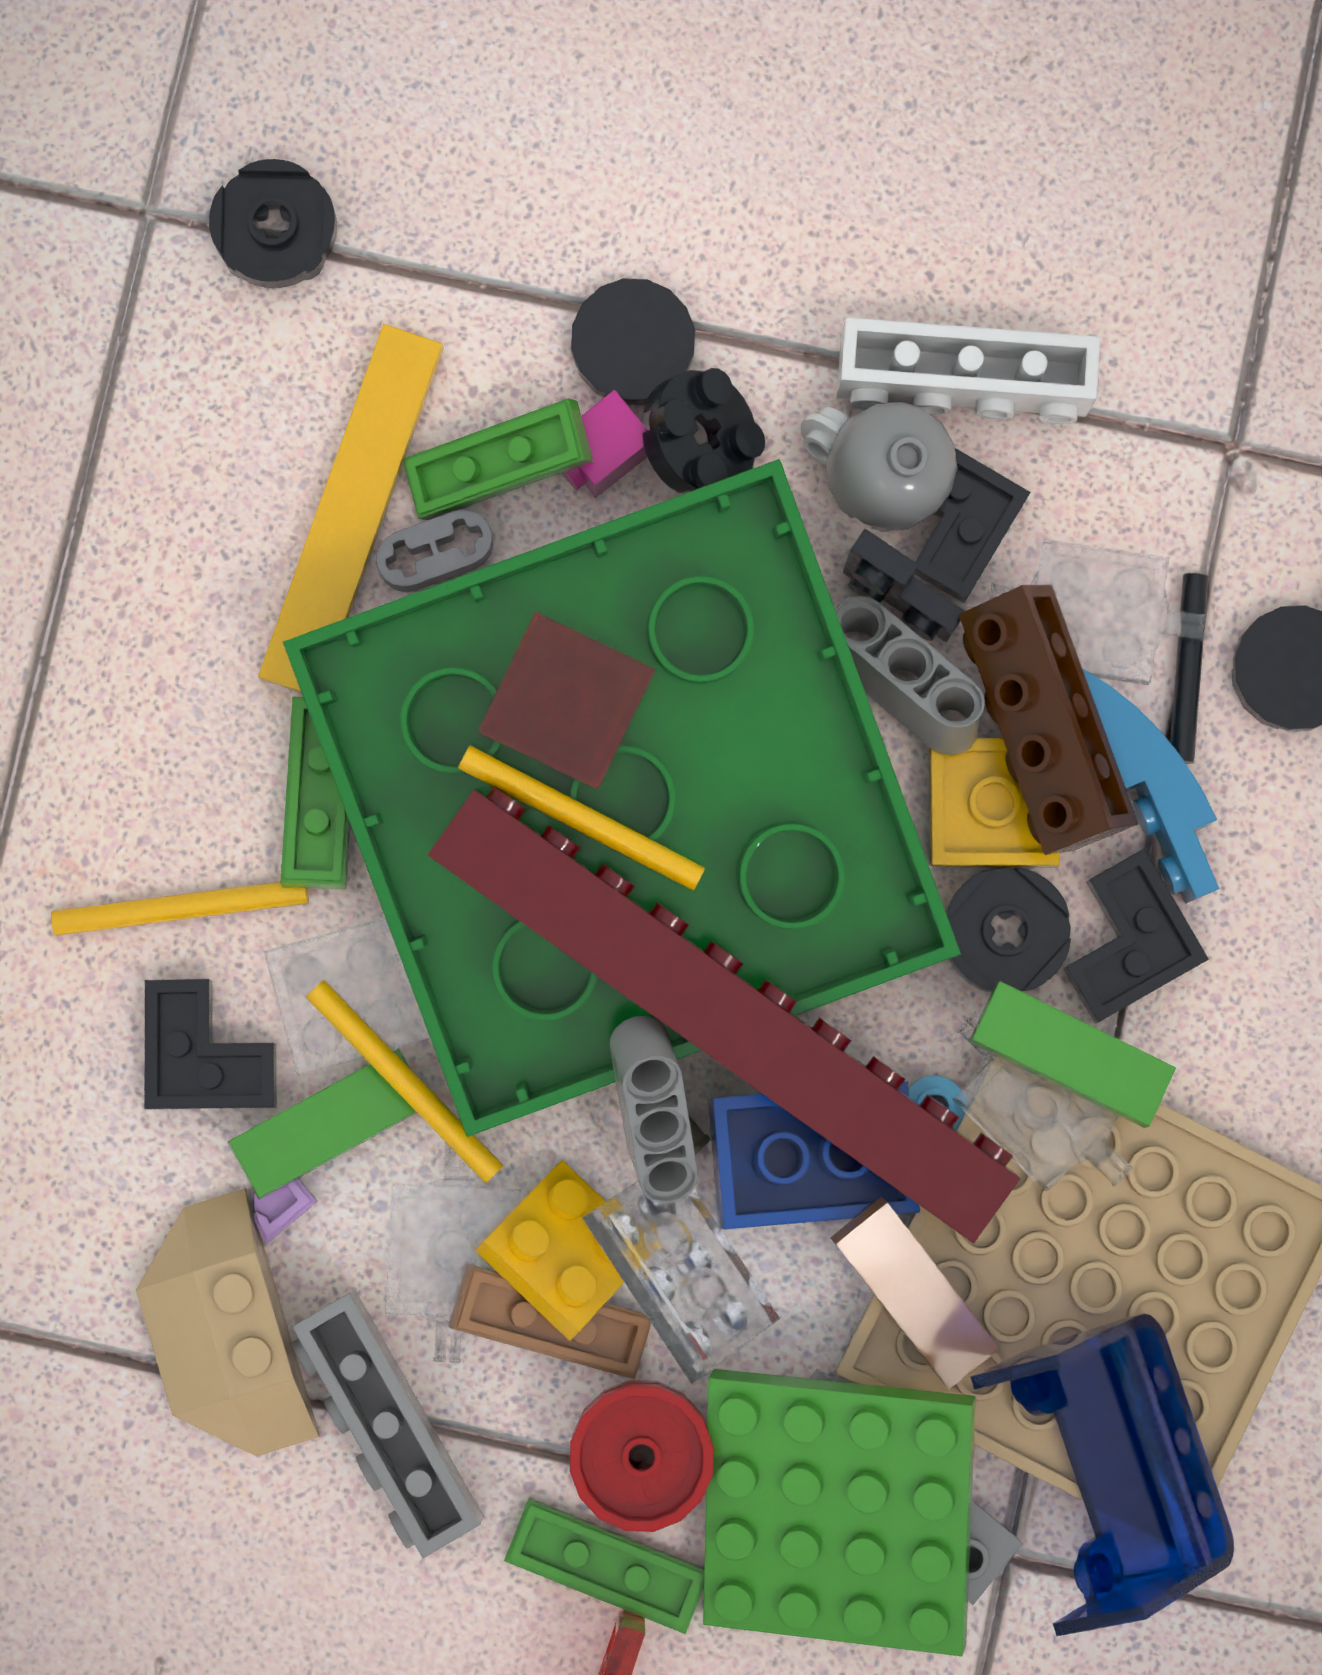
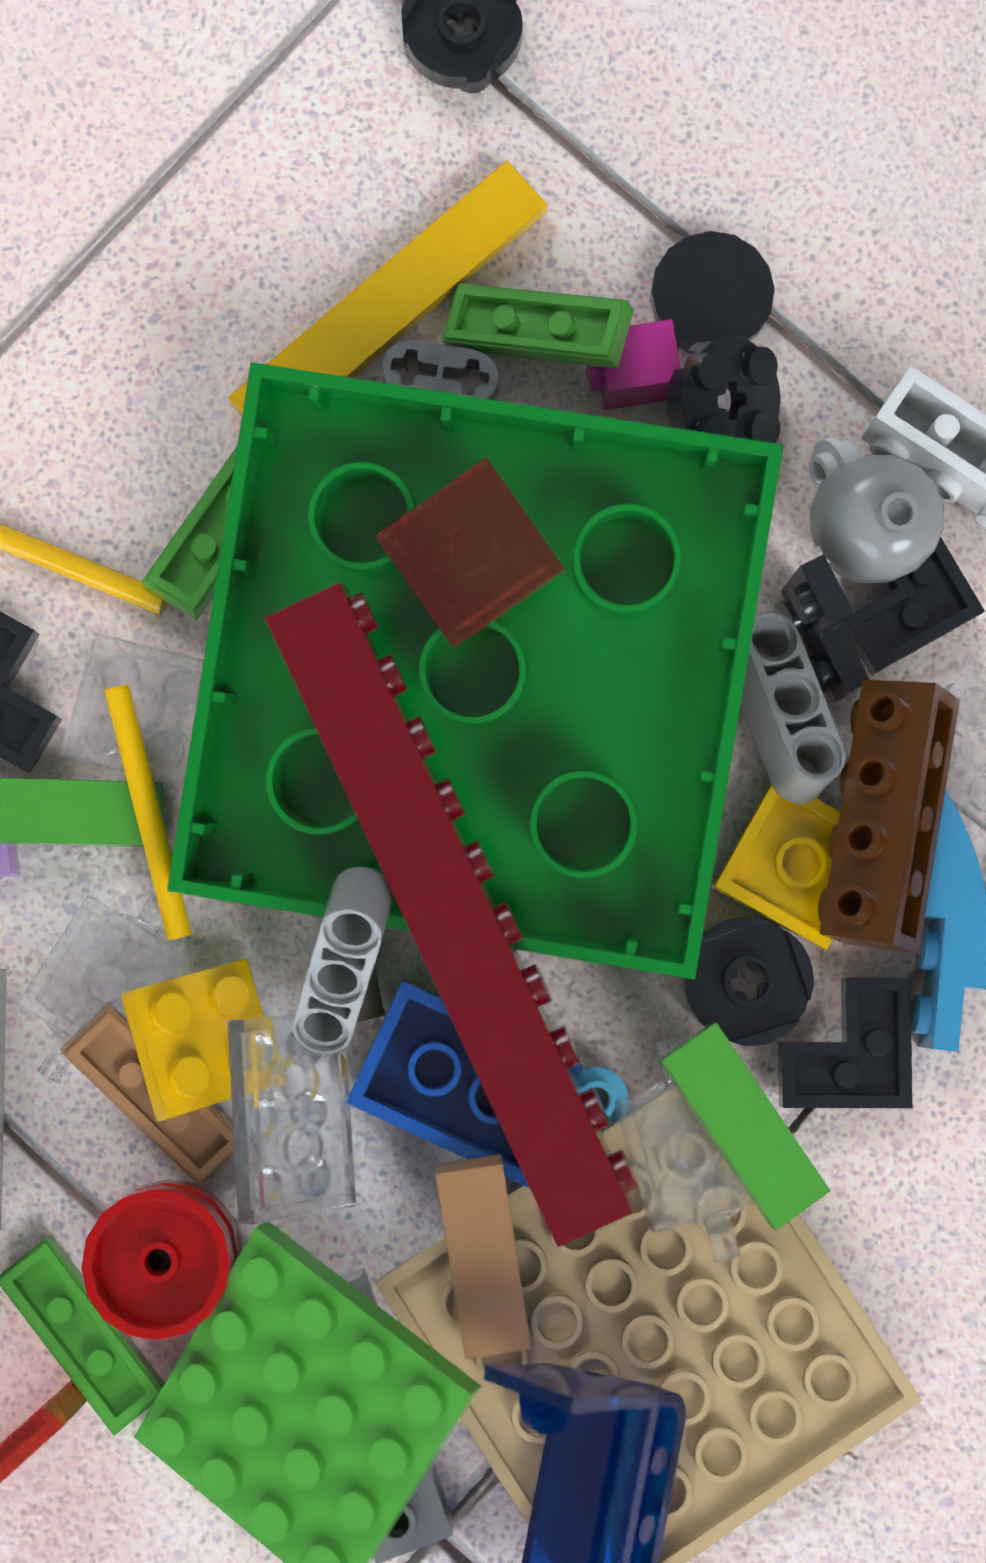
camera: 30 degrees right, 0 degrees up
(581, 818) = (424, 665): yellow bar -> none

